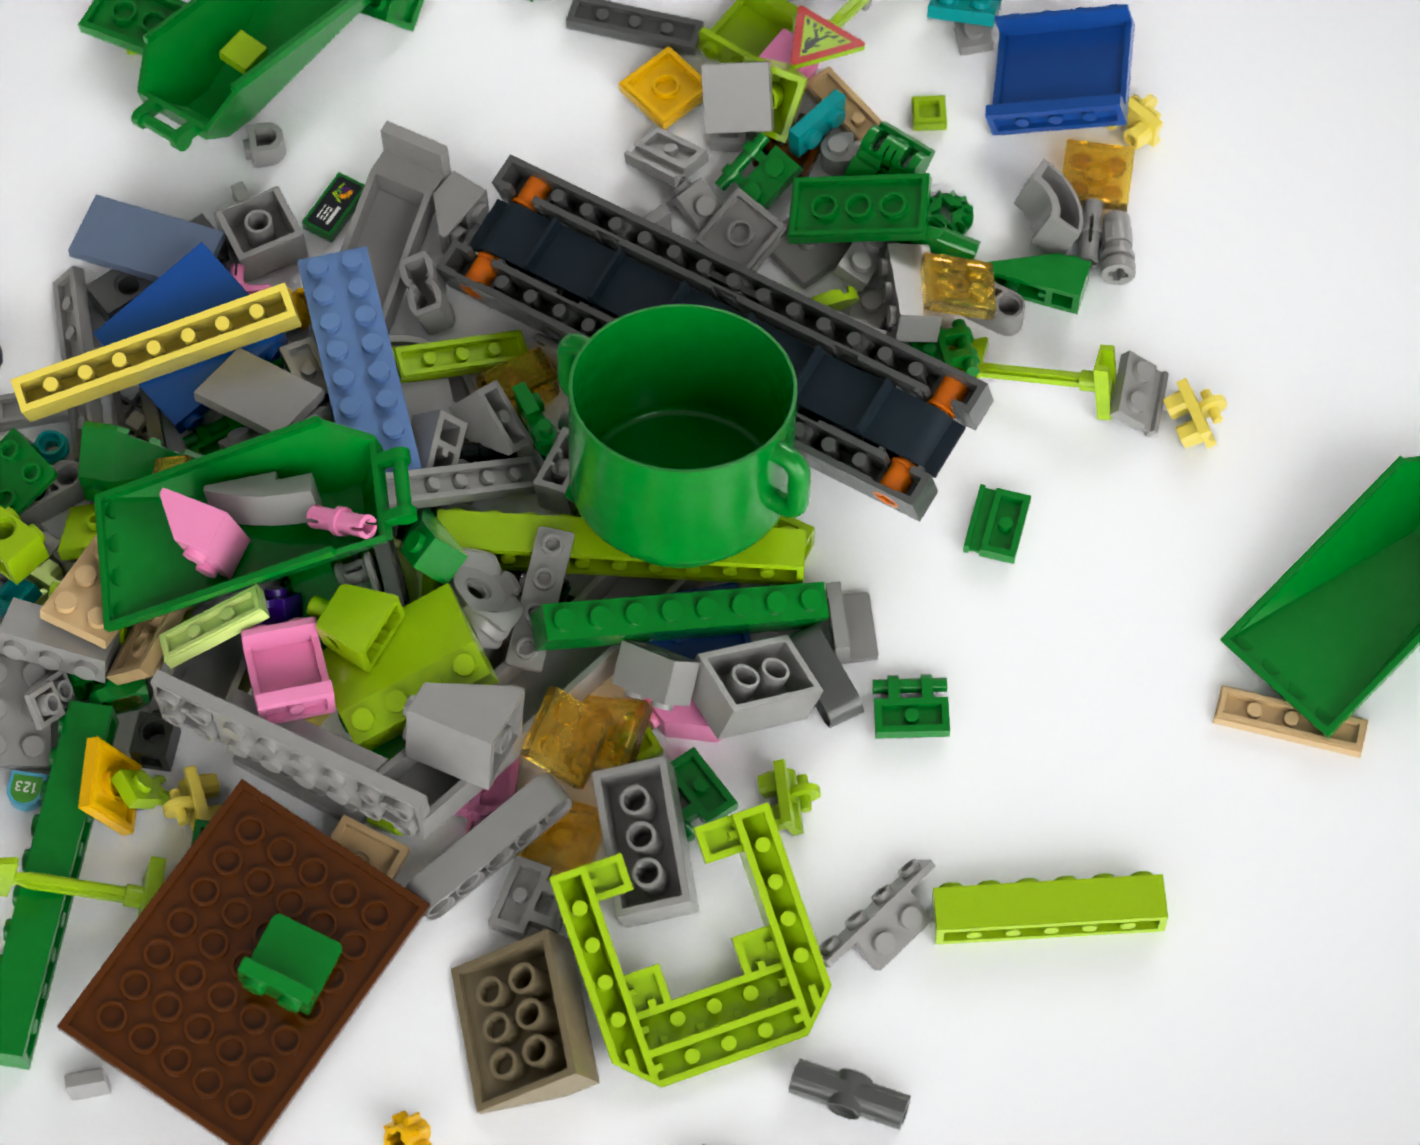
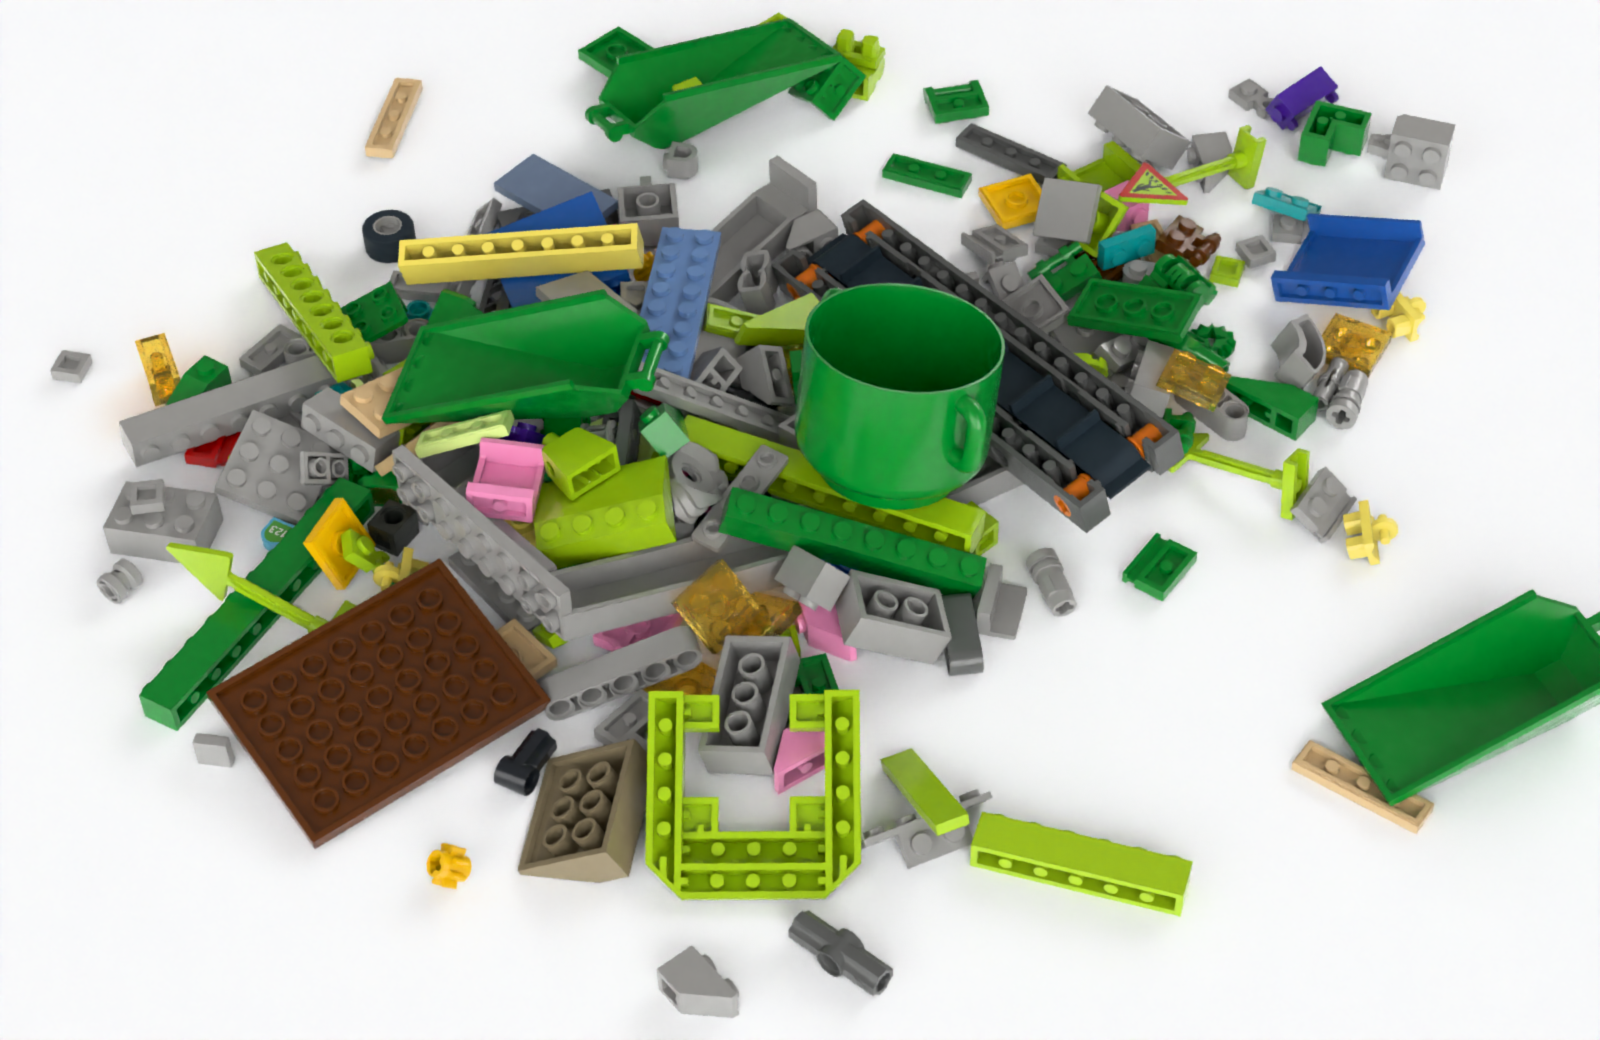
camera: 20 degrees right, 15 degrees down
(205, 534) = (484, 359): bright pink slope -> none
(265, 499) = (545, 353): light grey slope -> none
(290, 964) = (411, 703): green bracket -> none
(333, 207) = (712, 214): tile -> none
(341, 521) = (592, 374): bright pink pin -> none
(431, 995) = (523, 768): none -> black piece
(464, 728) = (628, 557): light grey slope -> none
(492, 344) = (779, 326): none -> lime slope
(550, 78) = (927, 175): none -> green tile
(715, 883) = (798, 758): none -> bright pink slope
(793, 795) = (892, 713): lime hips -> none
(864, 89) = (1186, 239): none -> reddish brown plate
(865, 883) = (925, 792): none -> lime tile
(895, 581) = (1048, 574): none -> light grey axle
(911, 716) = (1025, 679): green plate -> none
(952, 79) = (1255, 251): none -> light grey plate

